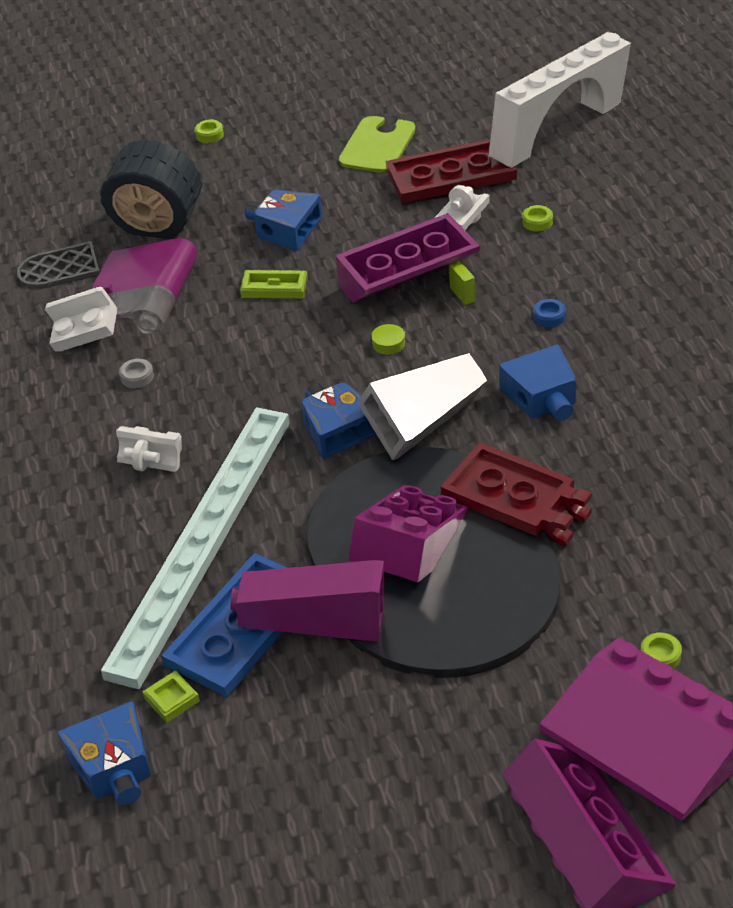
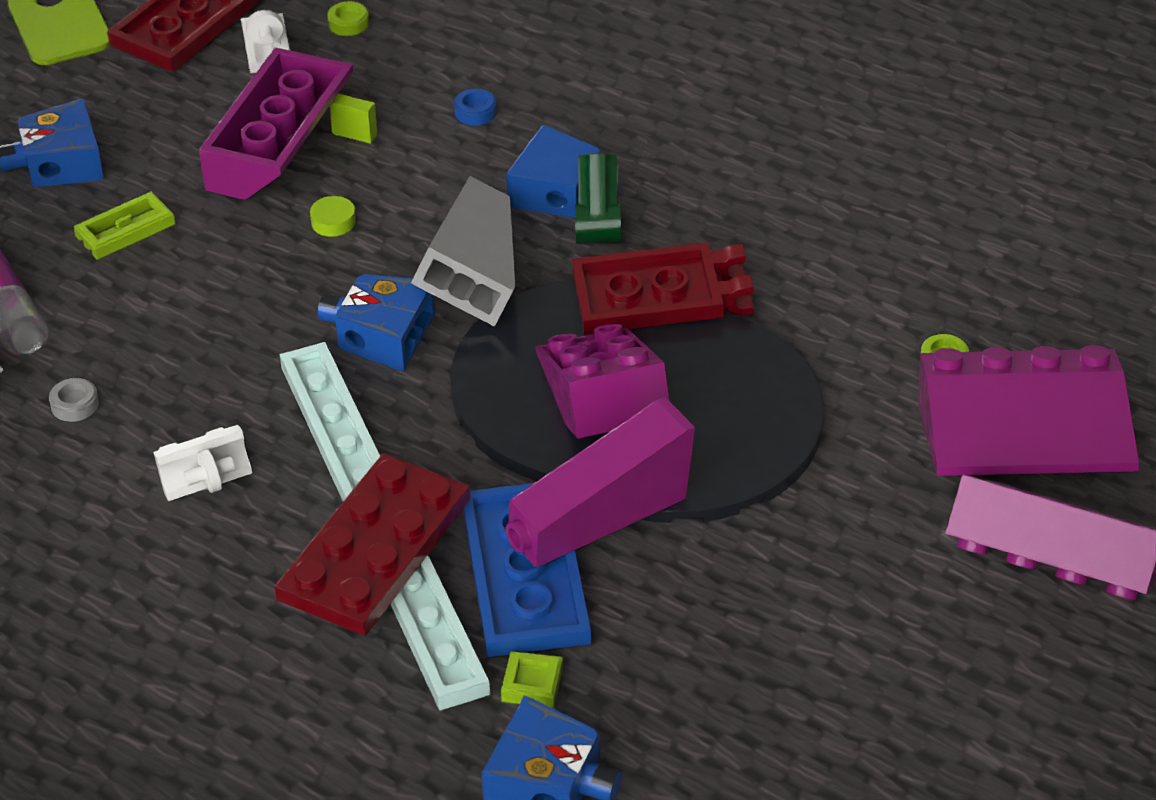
camera: 45 degrees left, 0 degrees up
(169, 553) = (372, 544): none -> dark red plate
(535, 421) = (598, 211): none -> dark green piece

